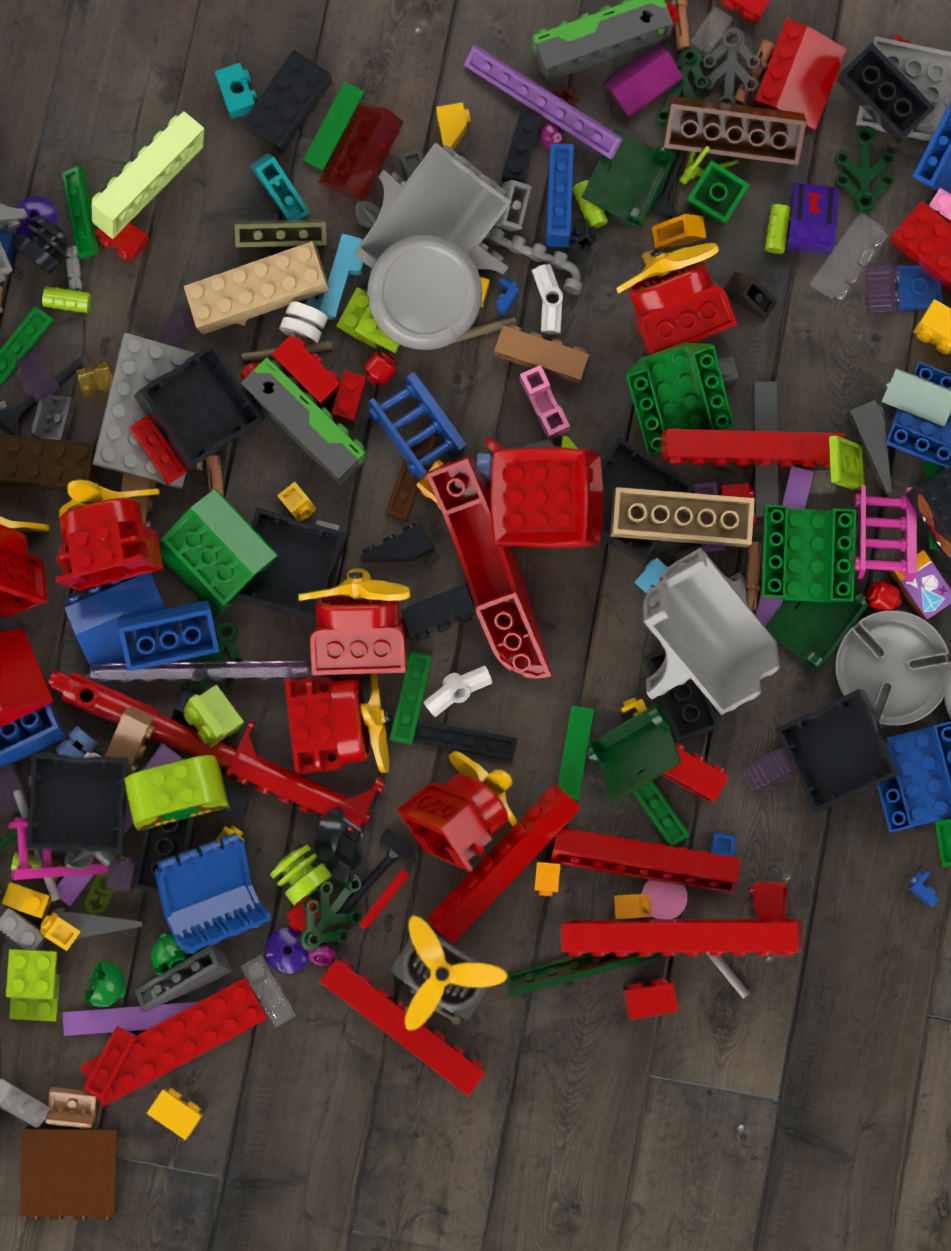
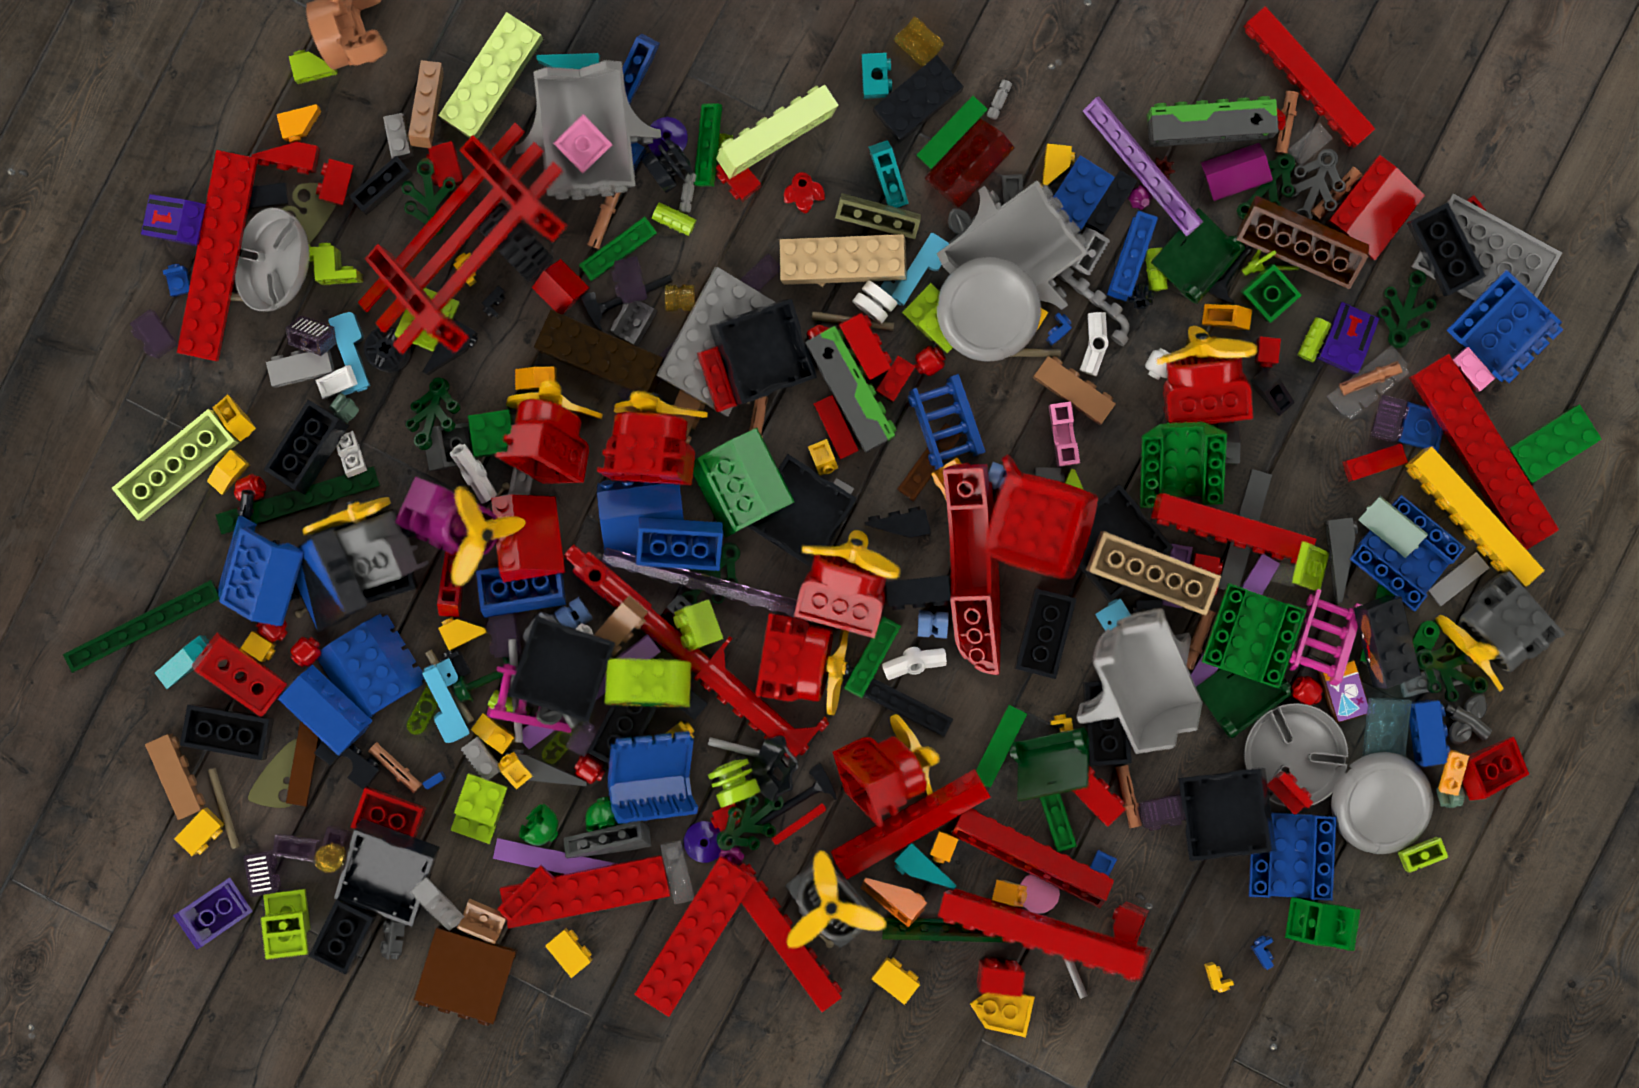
camera: 20 degrees right, 5 degrees up
(141, 906) = (589, 768): none -> red head
(198, 235) = (803, 195): none -> red plate
(271, 42) = (919, 42): none -> clear yellow bracket
(295, 838) = (737, 748): none -> light grey bar
(301, 466) = (836, 427): none -> red tile
(306, 1054) = (695, 936): none -> red plate
(373, 78) = (999, 99): none -> light grey axle
(465, 643) = (932, 624): none -> medium blue wheel
(488, 143) = (1083, 190): none -> blue brick
(515, 950) = (897, 900): none -> orange slope
(525, 905) = (920, 866): none -> teal slope
(538, 1037) = (896, 980): none -> yellow brick
(587, 617) = (1045, 633): none -> black brick
(621, 303) = (1156, 370): none -> white head
(665, 1037) = (1004, 1013): none -> yellow tile
(727, 763) = (1128, 796): none -> nougat pin
(732, 255) = (1267, 351): none -> red brick
(855, 245) = (1369, 378): none -> nougat pin
(879, 337) = (1374, 462): none -> red slope
(879, 929) = (1214, 974): none -> yellow bracket
(899, 708) = (1289, 793): none -> red bracket

